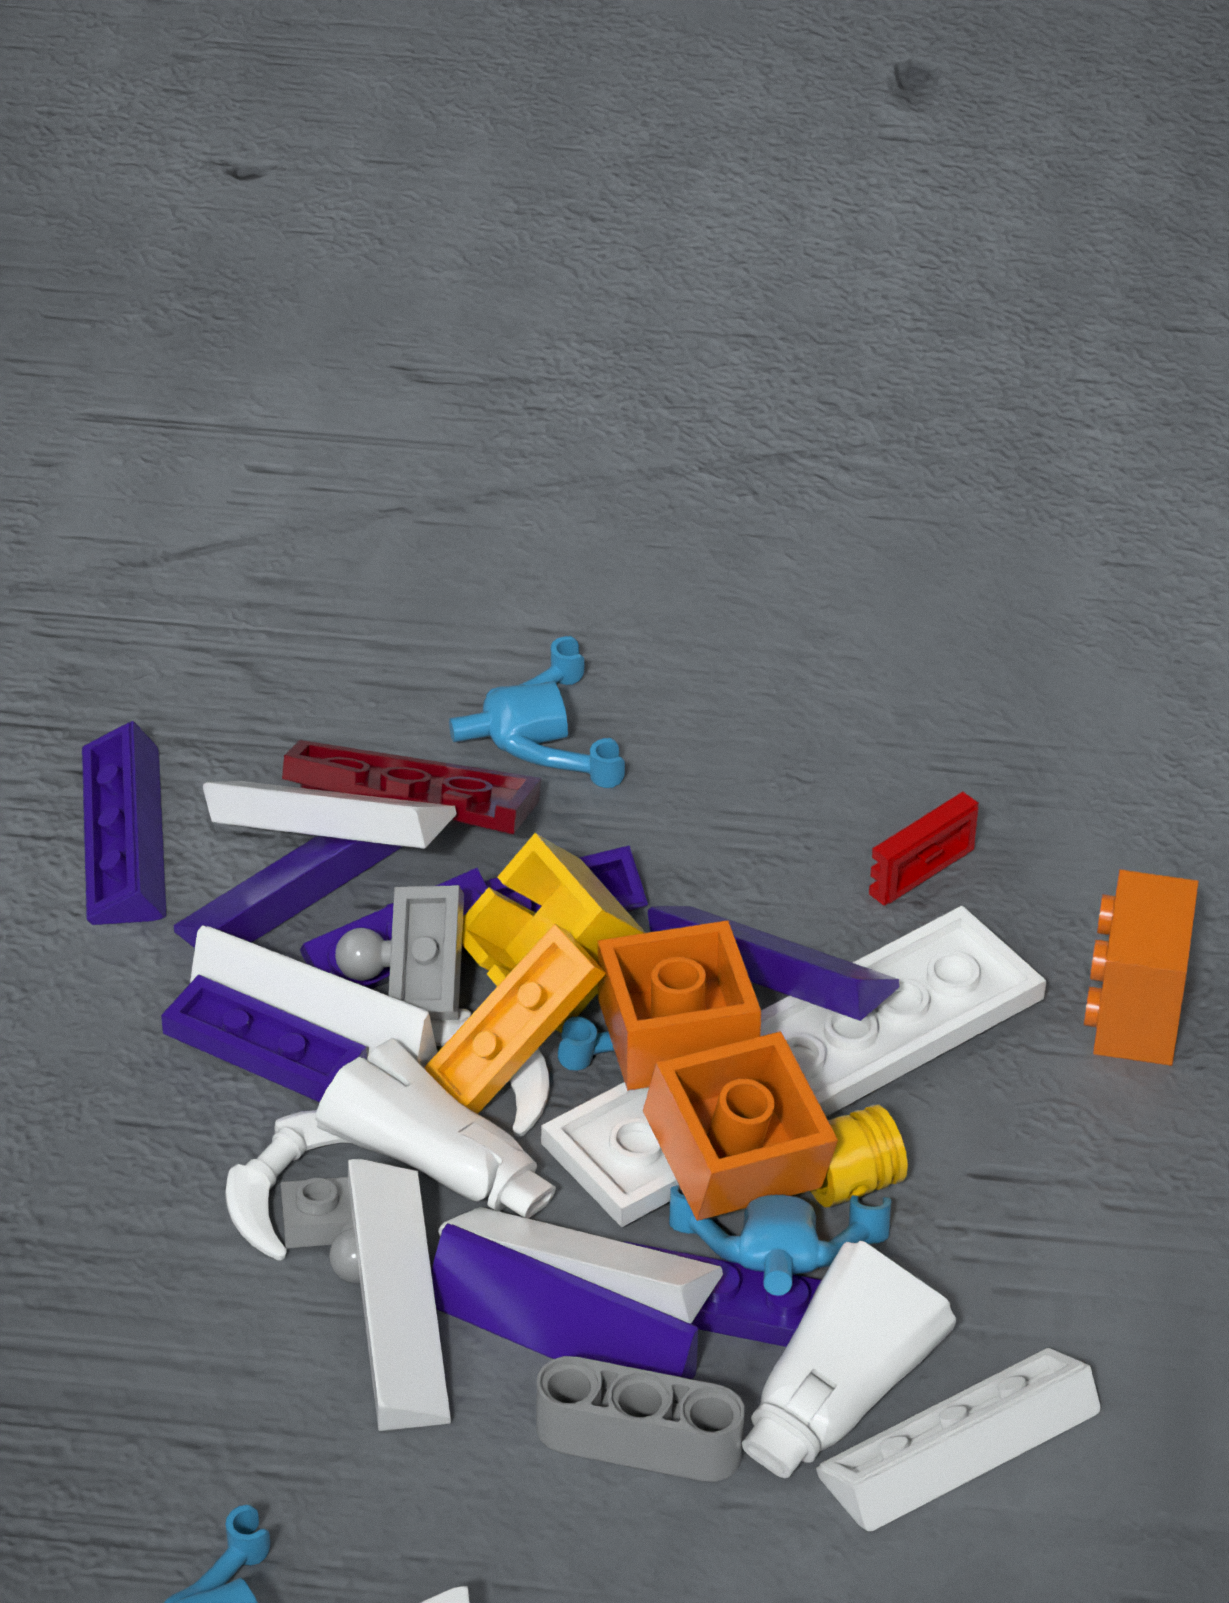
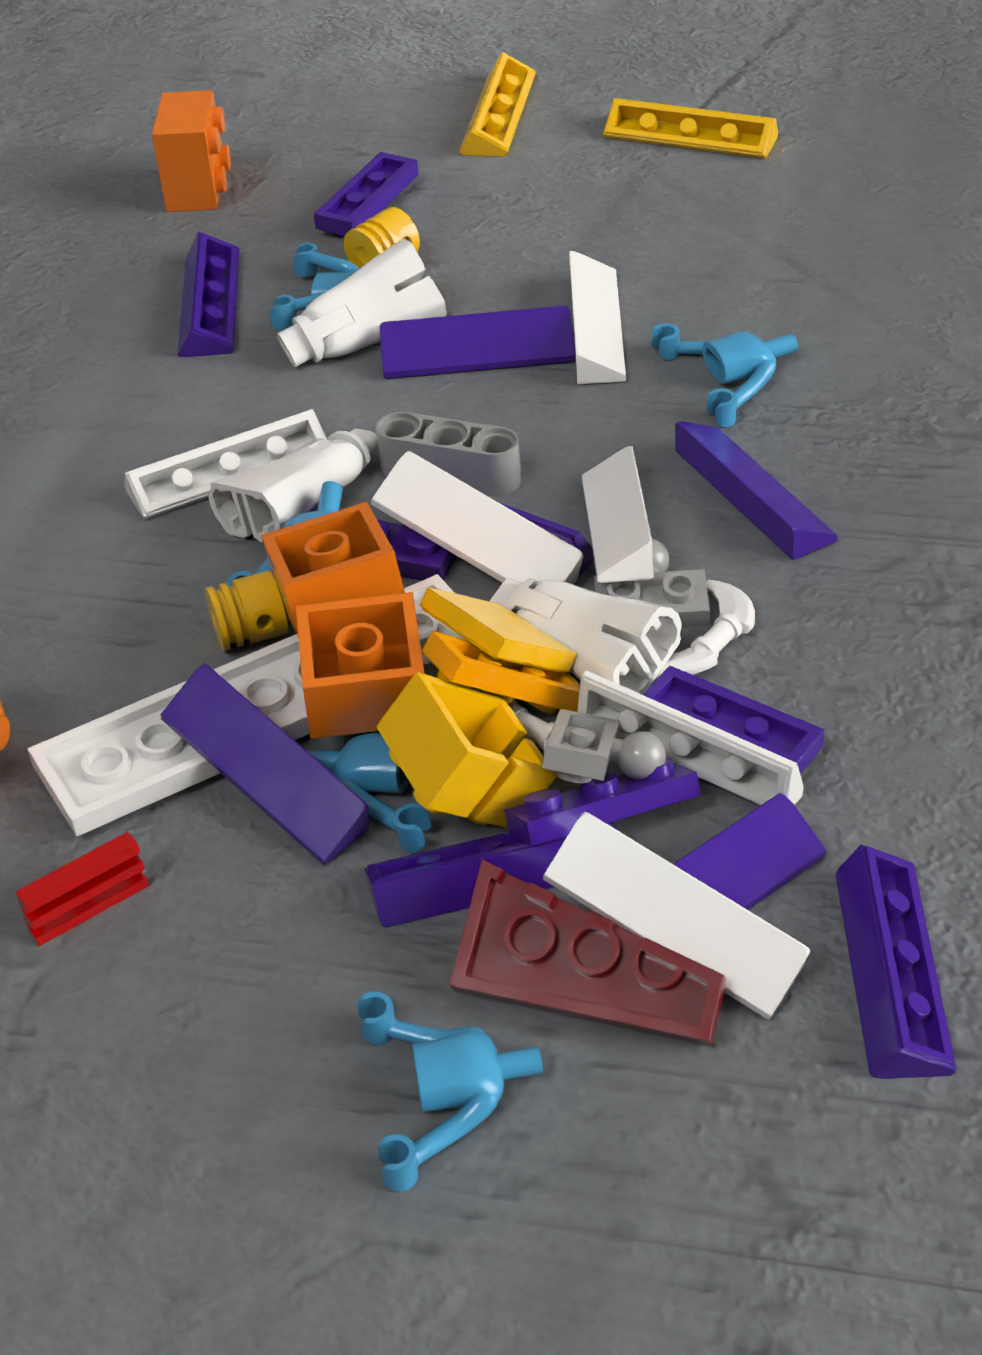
camera: 170 degrees left, 0 degrees up
(216, 1390) = (752, 490): none -> dark purple slope
(528, 1063) = (497, 631): none -> yellow tile

